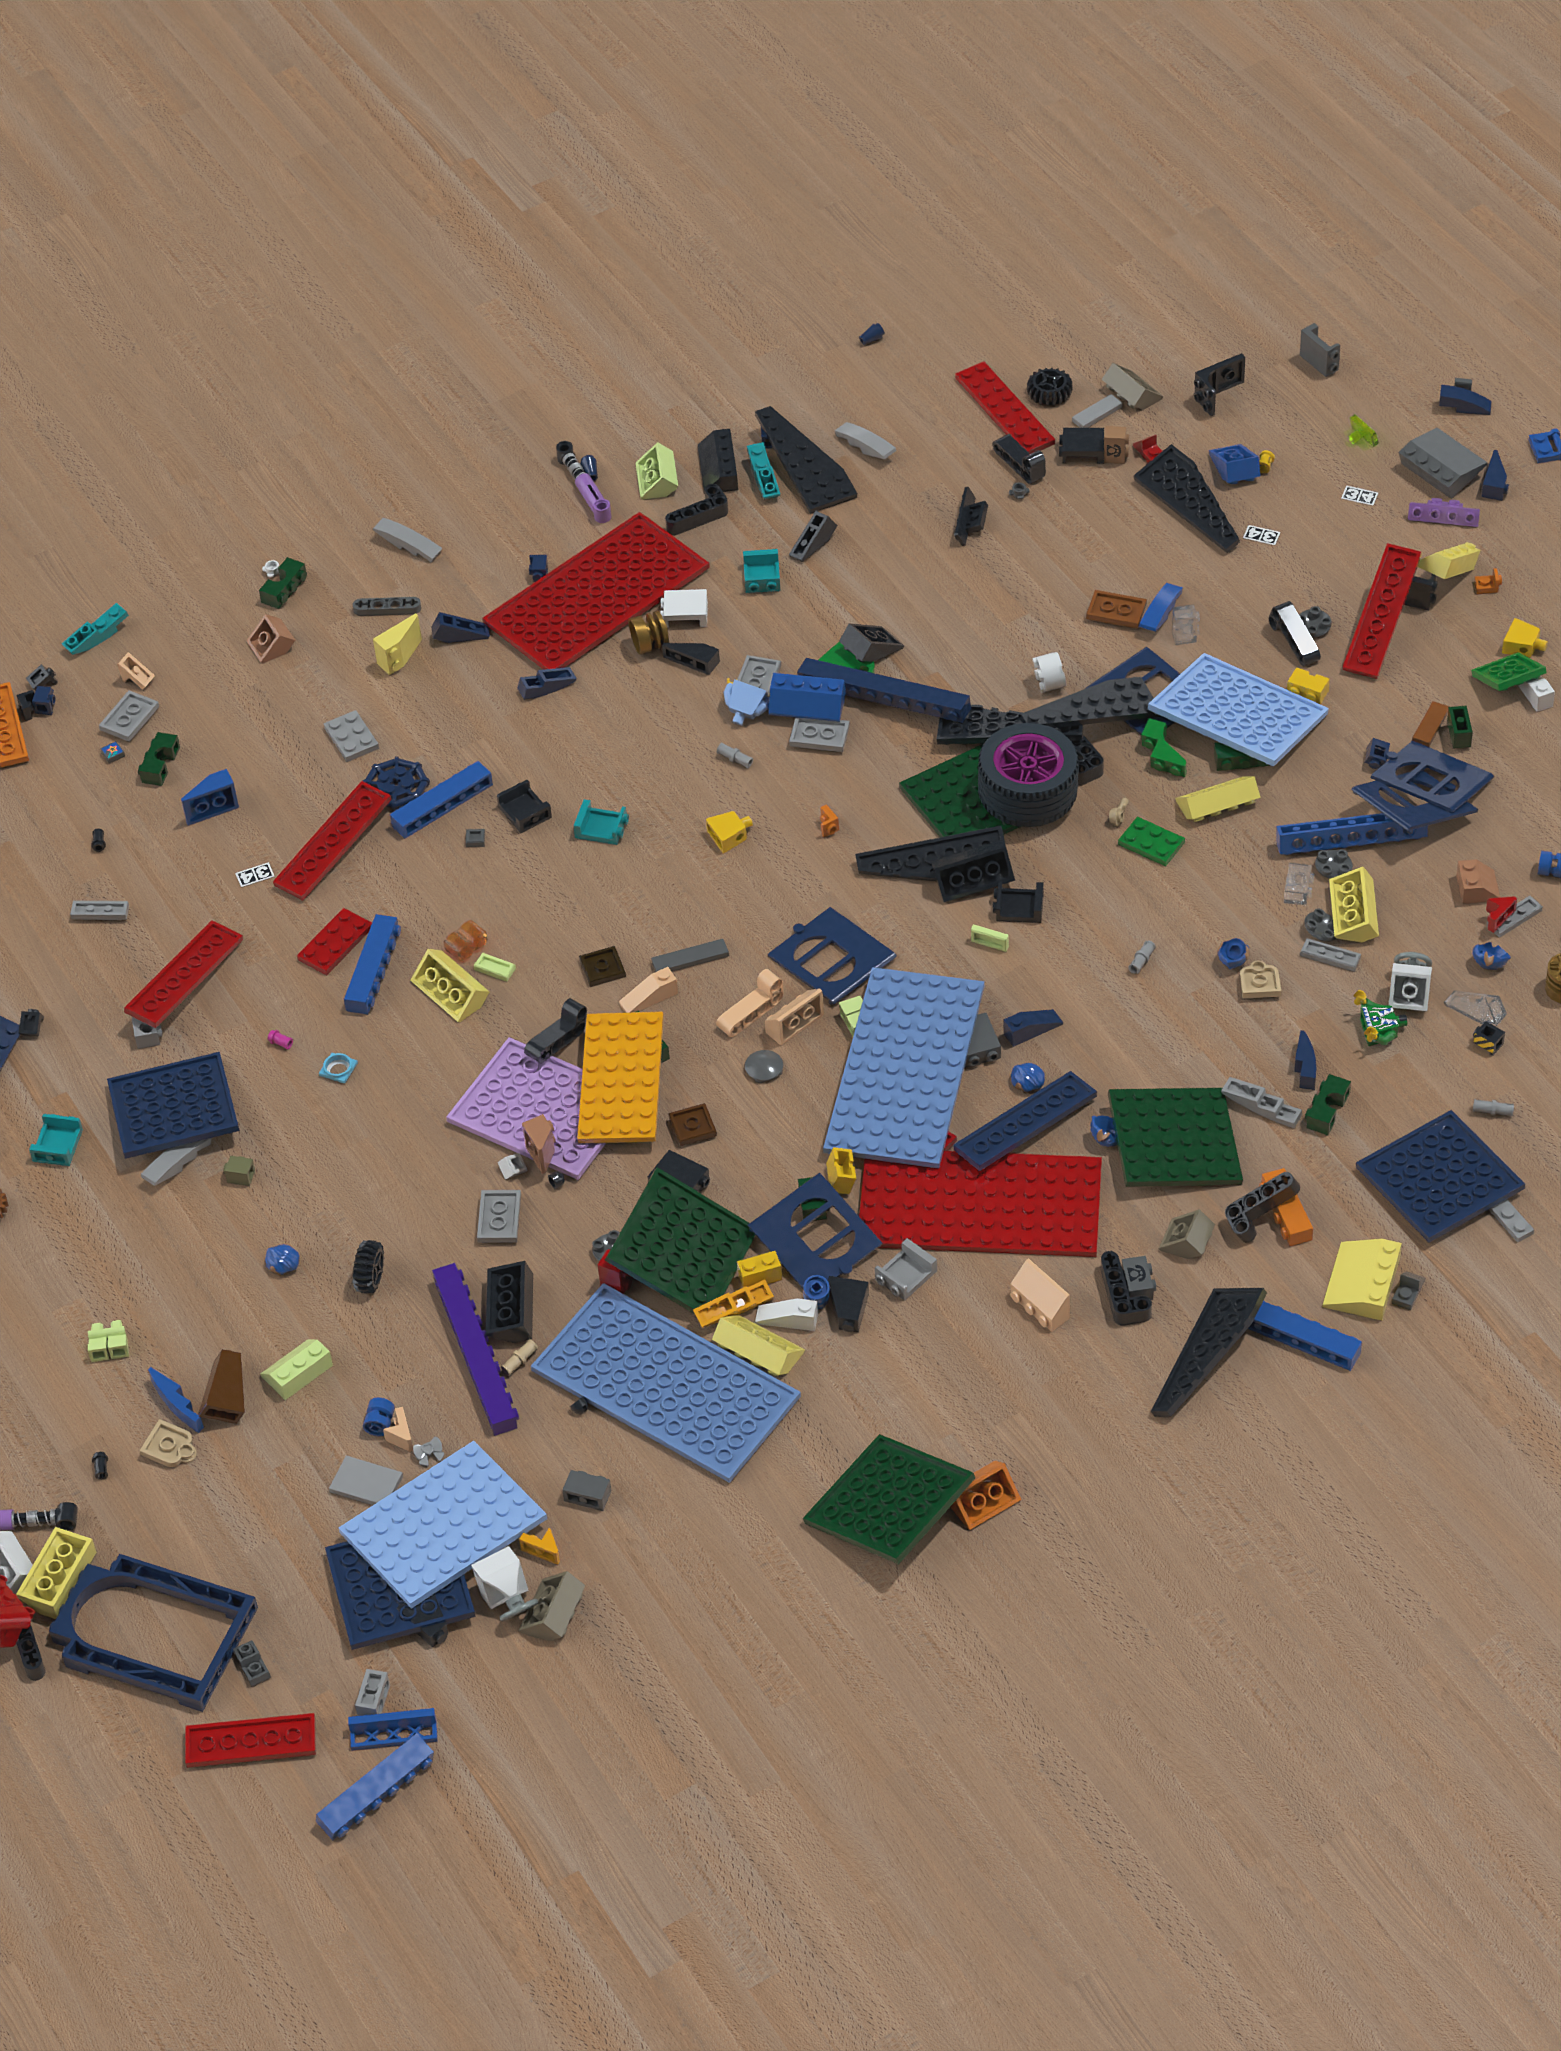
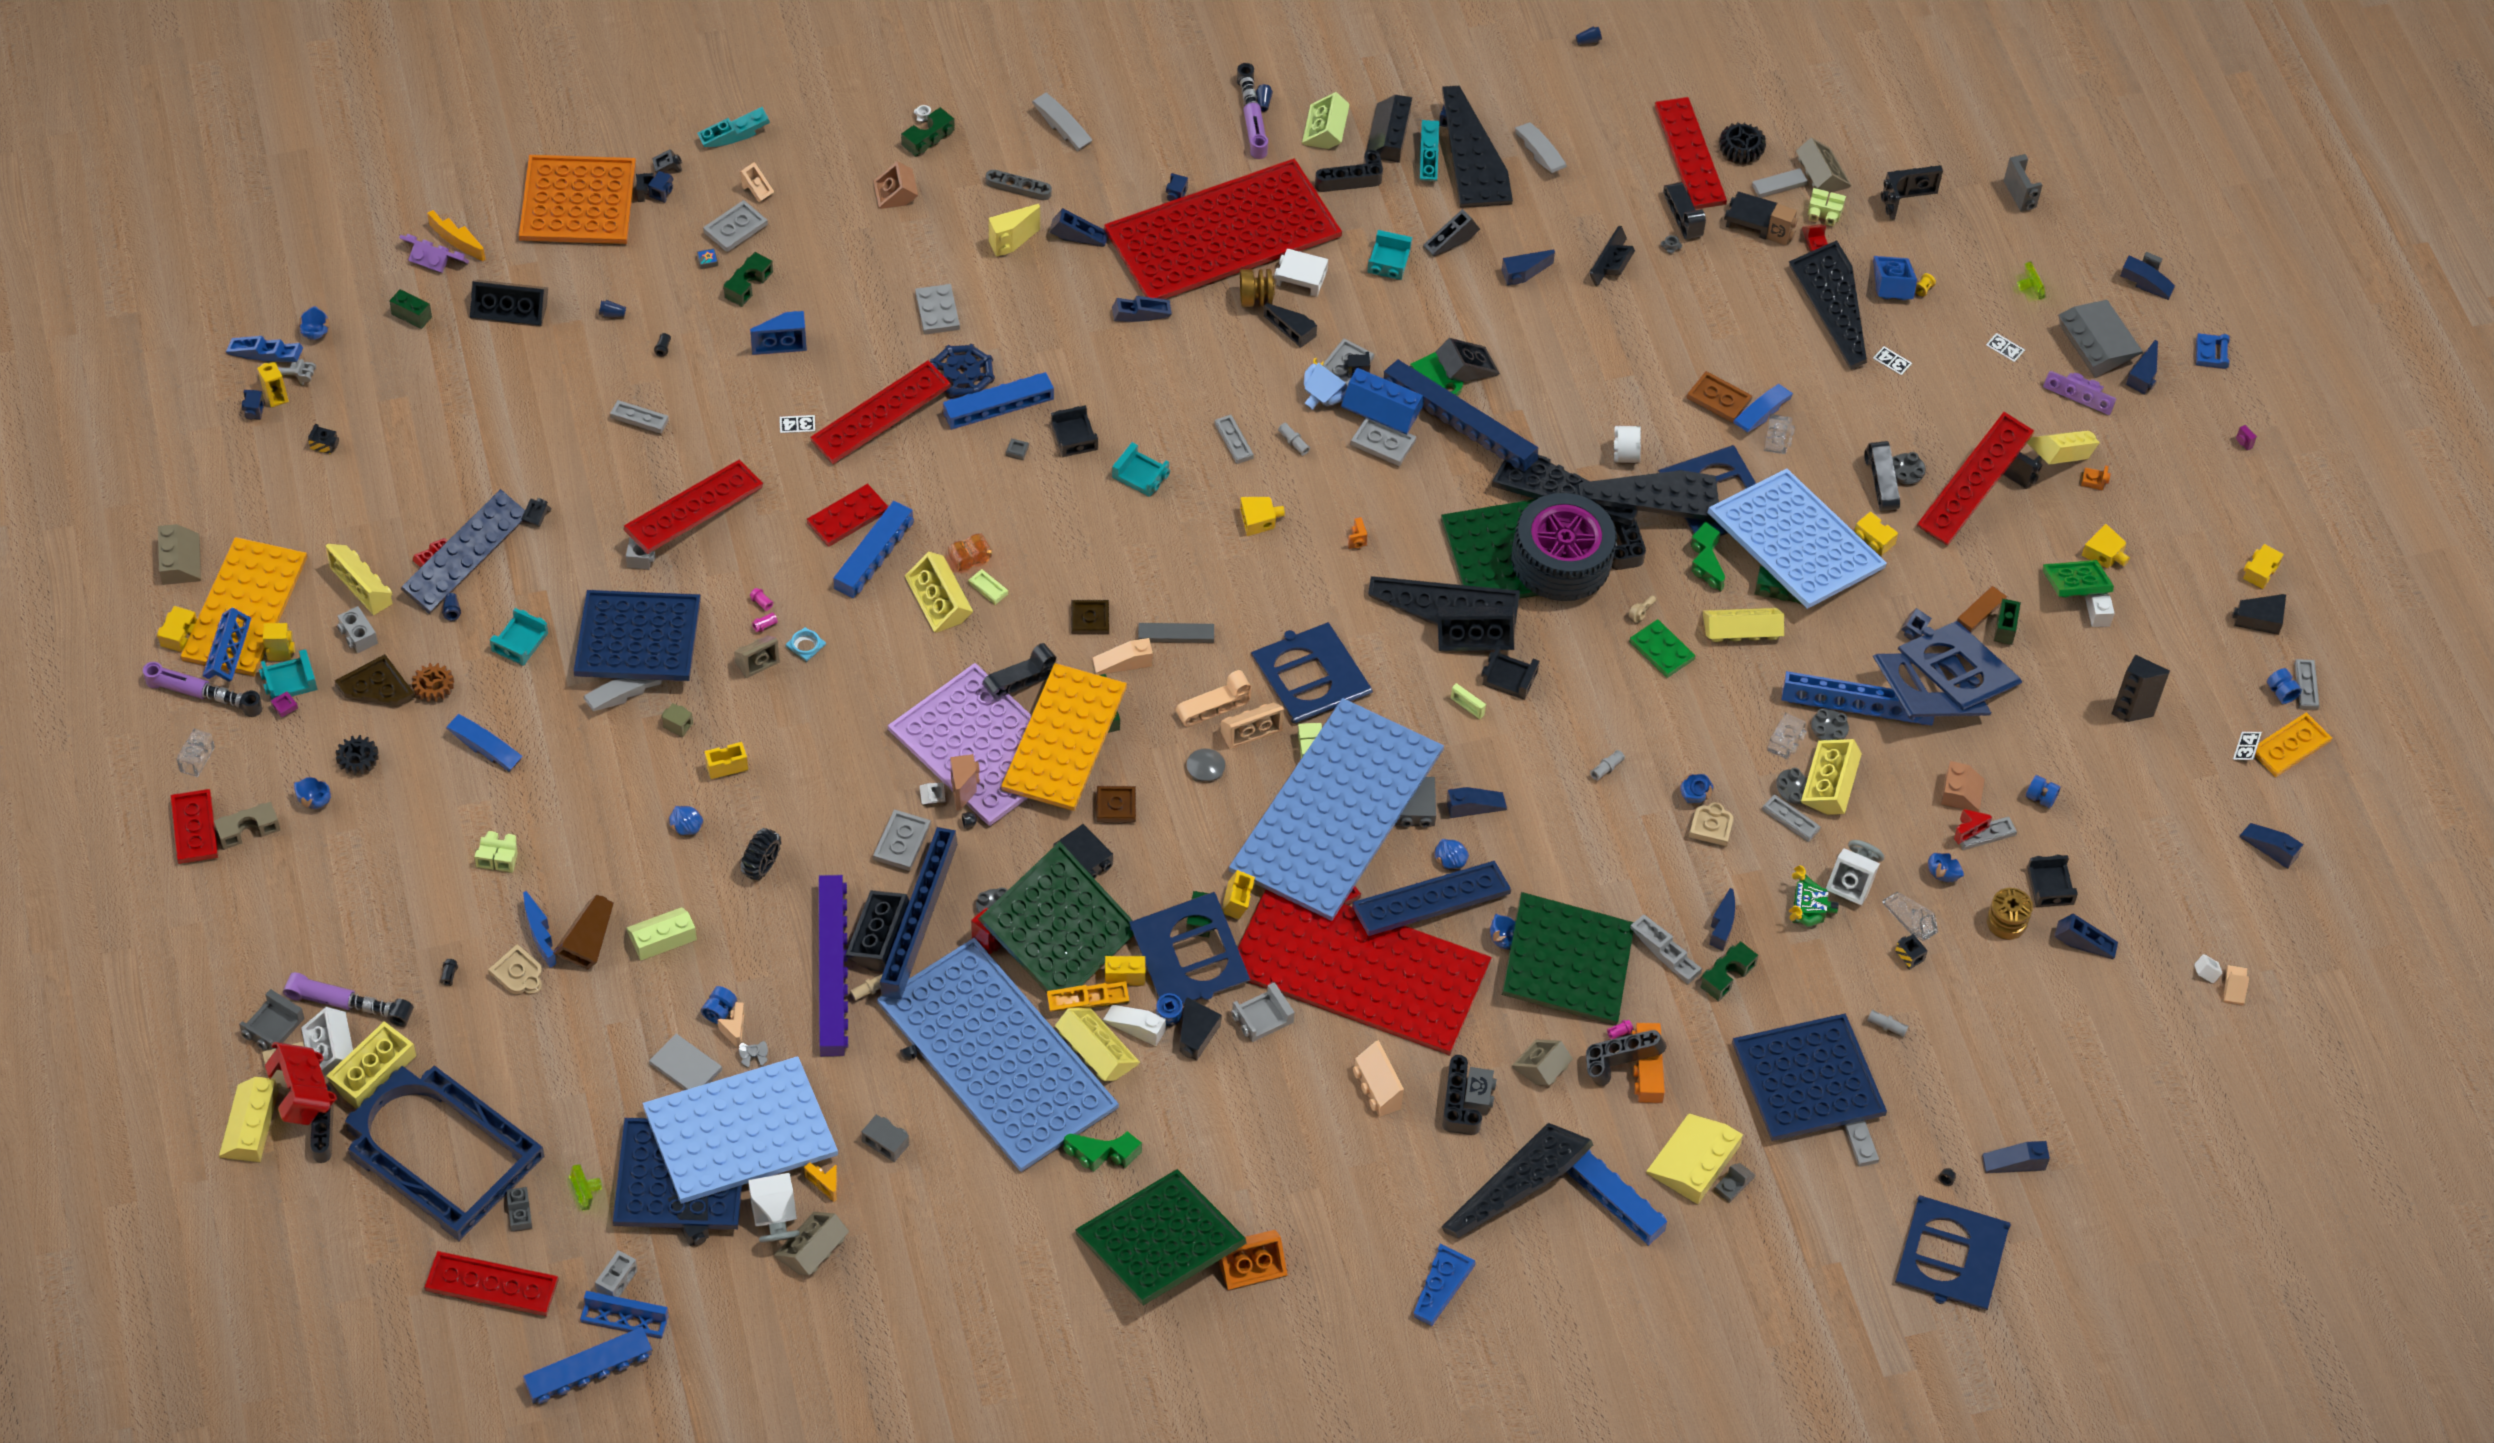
camera: 10 degrees right, 5 degrees up
(36, 822) = (611, 309): none -> dark blue cone
(57, 1244) = (484, 741): none -> blue slope
(287, 1062) = (764, 622): none -> dark pink pin
(296, 1090) = (757, 656): none -> dark tan slope
(302, 1193) = (726, 760): none -> yellow brick
(308, 1623) = (583, 1187): none -> clear neon green tile
(542, 1276) = (918, 913): none -> dark blue brick
(677, 771) = (1234, 439): none -> light grey tile
(766, 672) = (1356, 361): none -> black brick
(794, 1442) = (1095, 1152): none -> green arch
(891, 547) = (1523, 267): none -> dark blue slope
(1153, 423) = (1818, 206): none -> yellowish green hips
(1171, 1461) = (1442, 1283): none -> blue wing
(1249, 1185) = (1621, 1029): none -> dark pink pin

